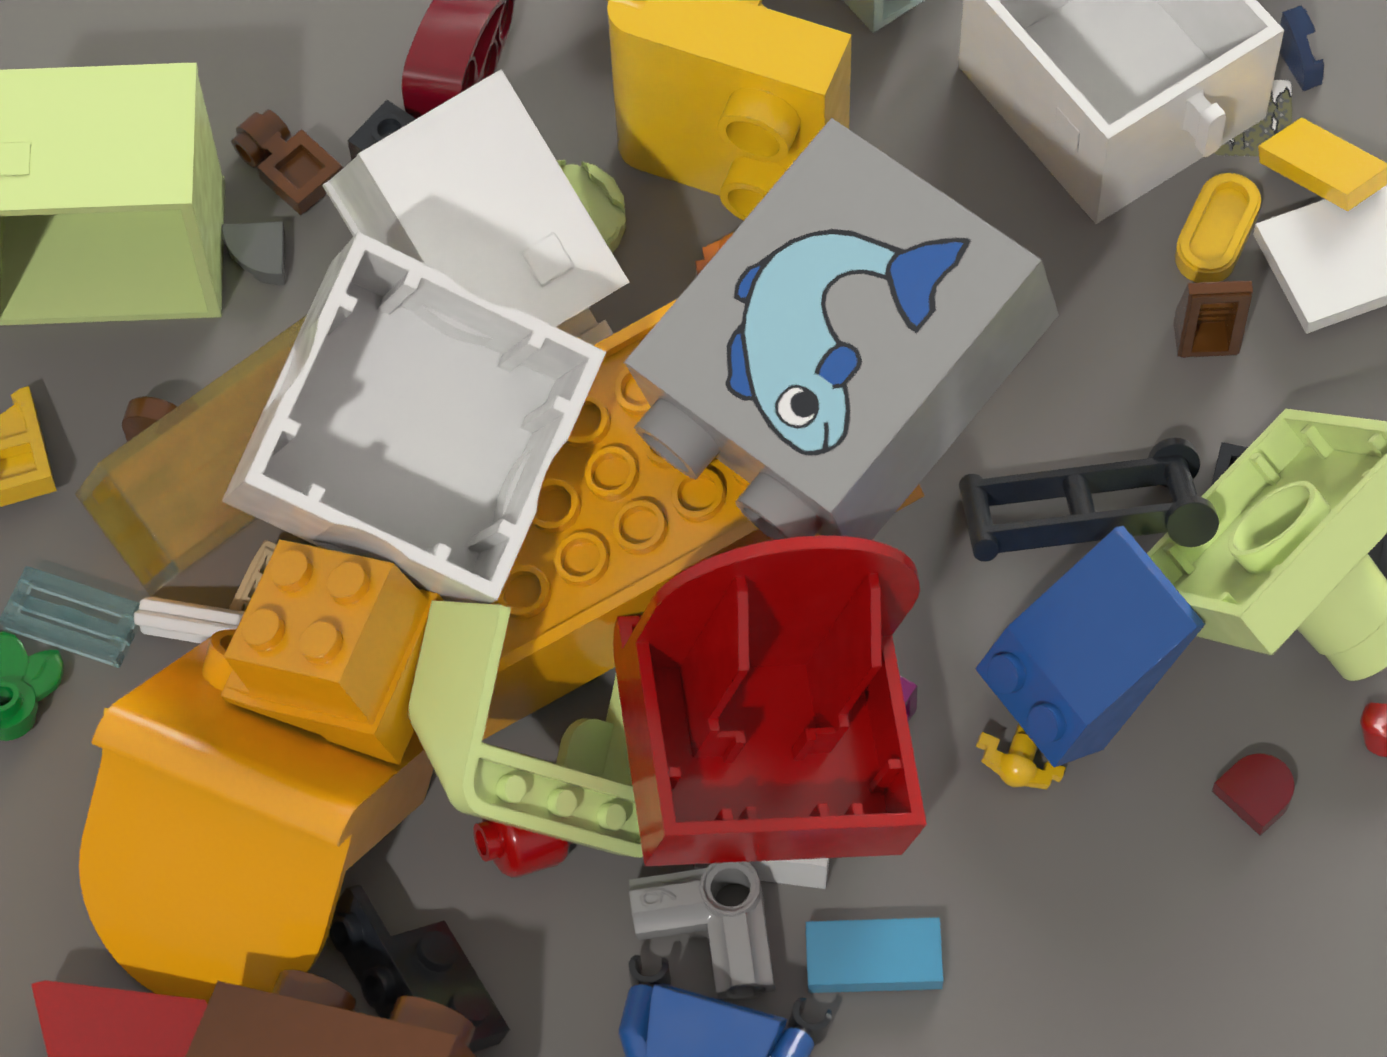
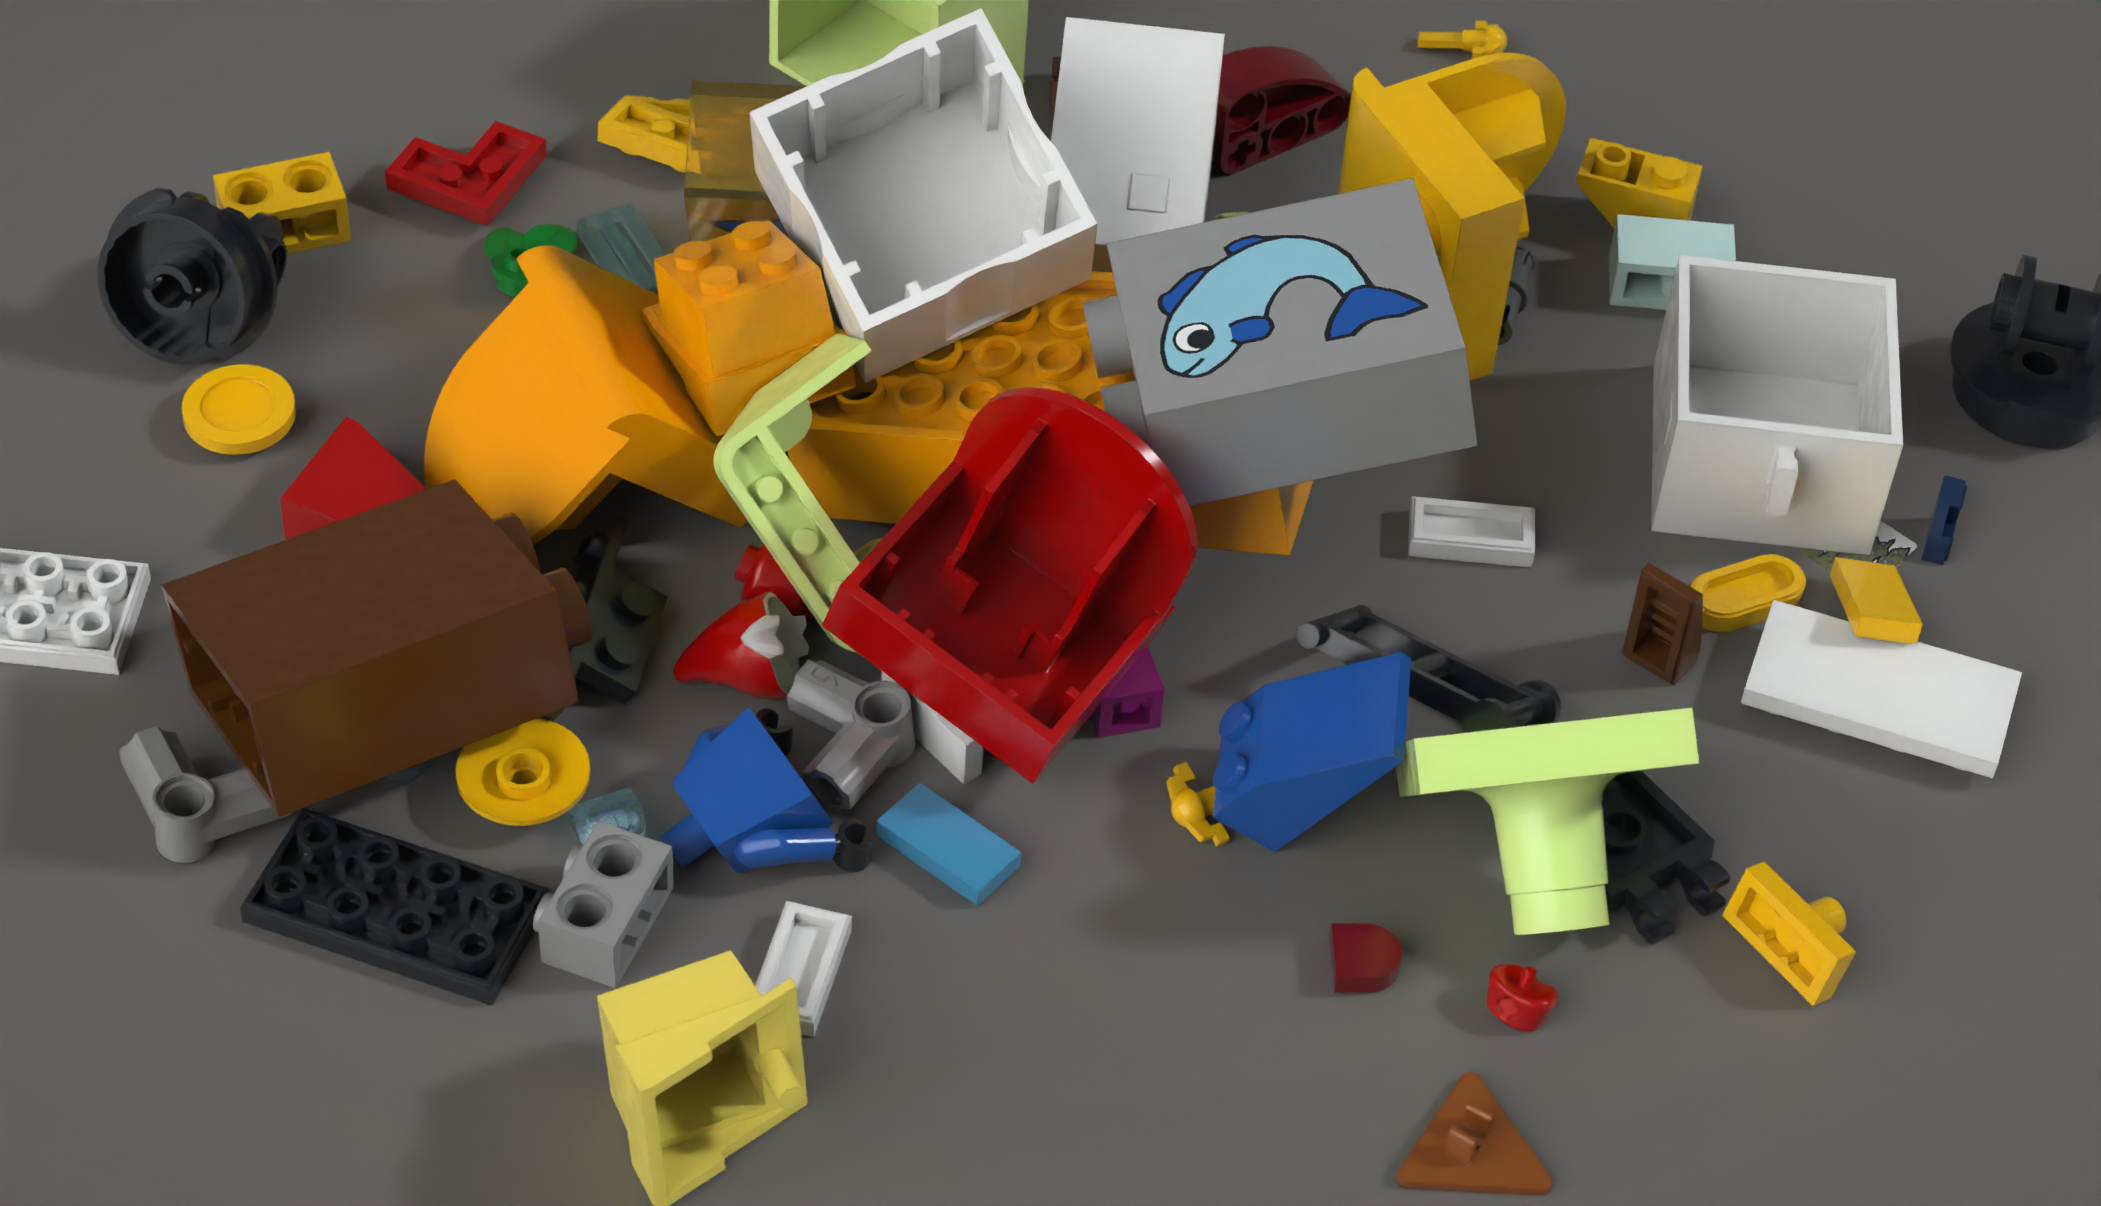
camera: 35 degrees right, 15 degrees down
(564, 920) = (749, 649): none -> red hat

